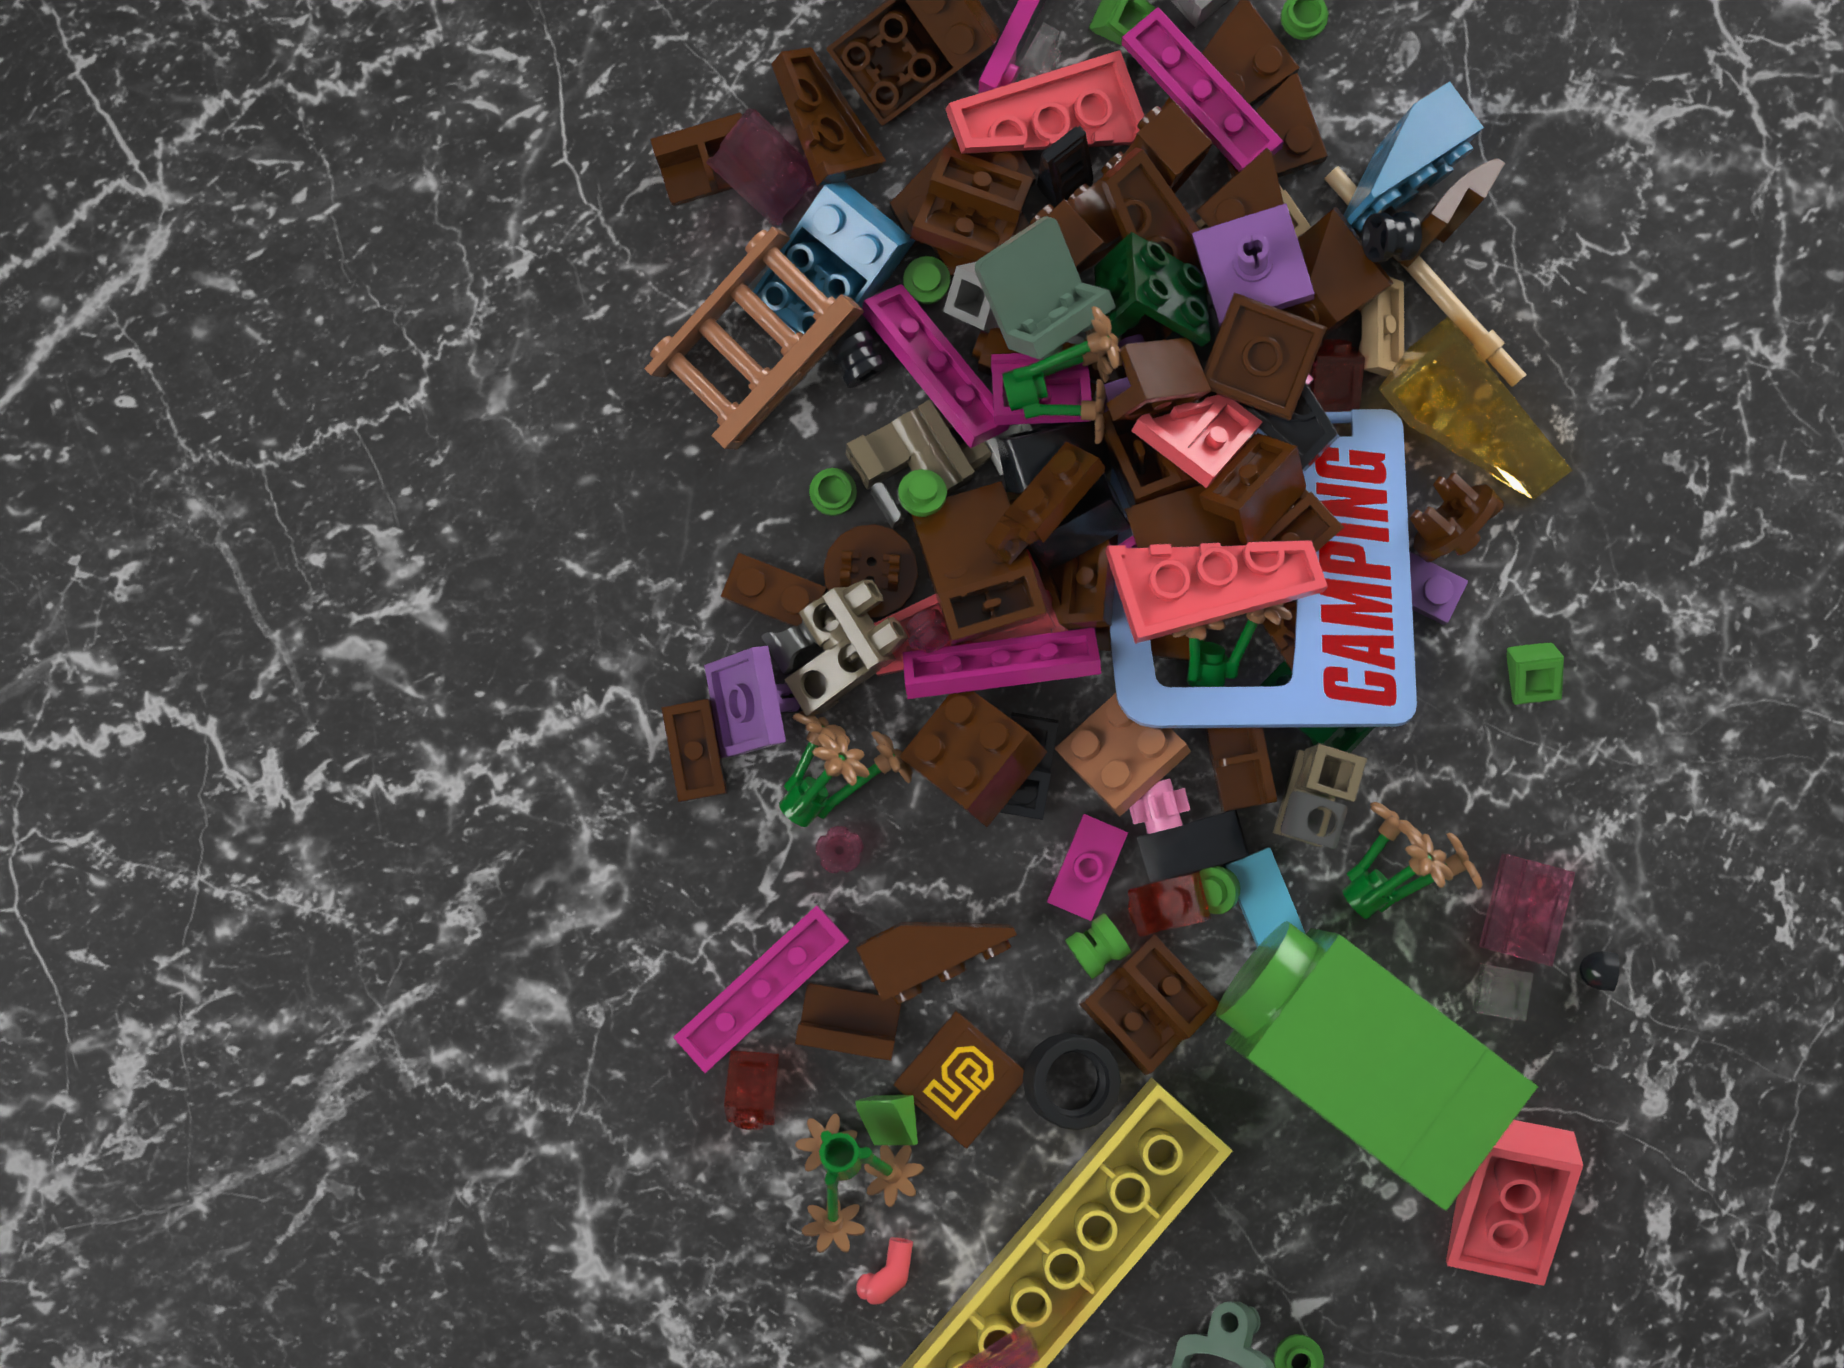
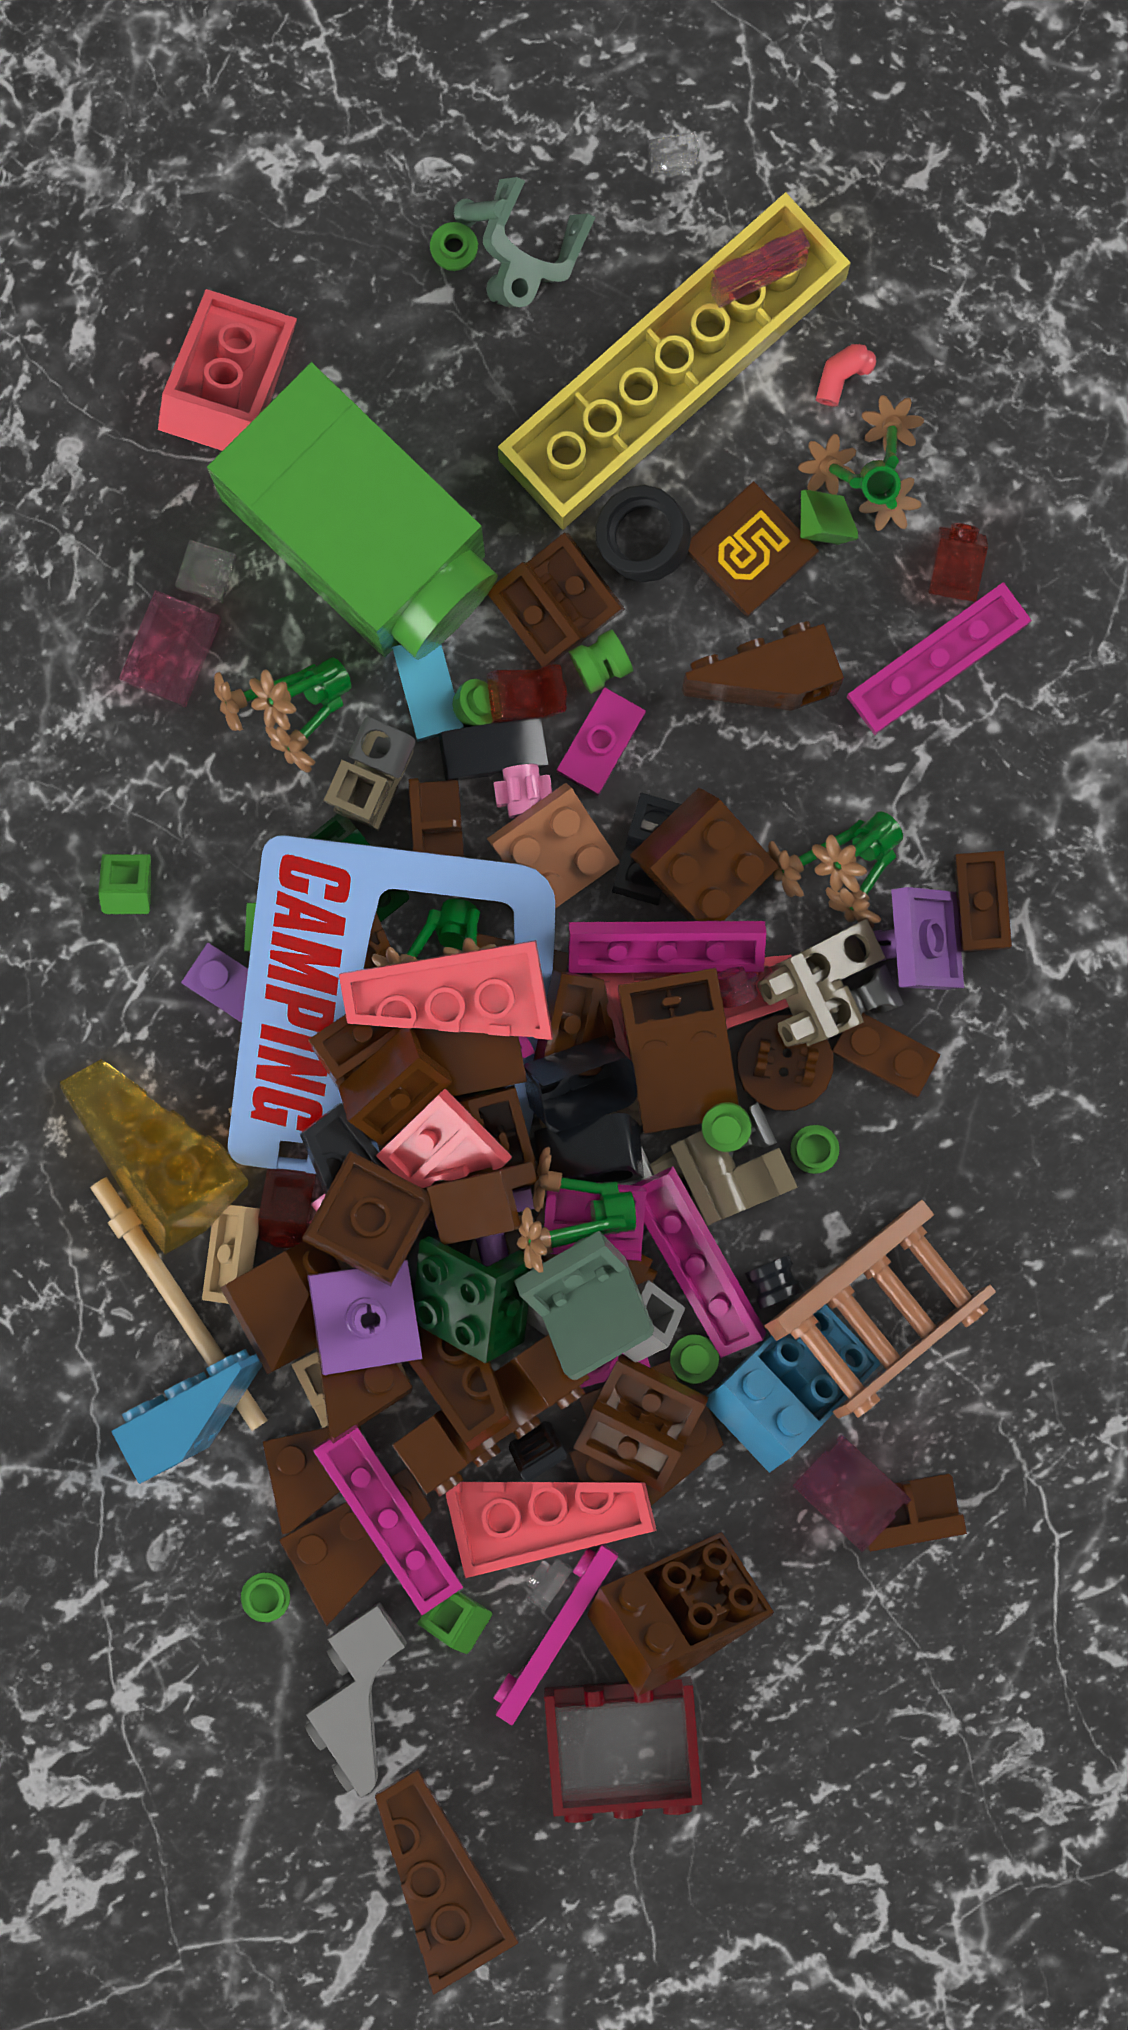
camera: 175 degrees left, 0 degrees up
(825, 122) = (783, 1538): reddish brown wing -> none
(826, 850) = (847, 799): clear pink plate -> none
(848, 1021) = (858, 615): reddish brown panel -> none
(1045, 501) = (606, 1095): reddish brown hinge -> none
(1391, 236) = (219, 1330): black wheel -> none
(1456, 521) = (190, 1039): reddish brown plate -> none
(1457, 204) = (153, 1354): slope -> none
(1600, 970) = (106, 581): black hinge -> none

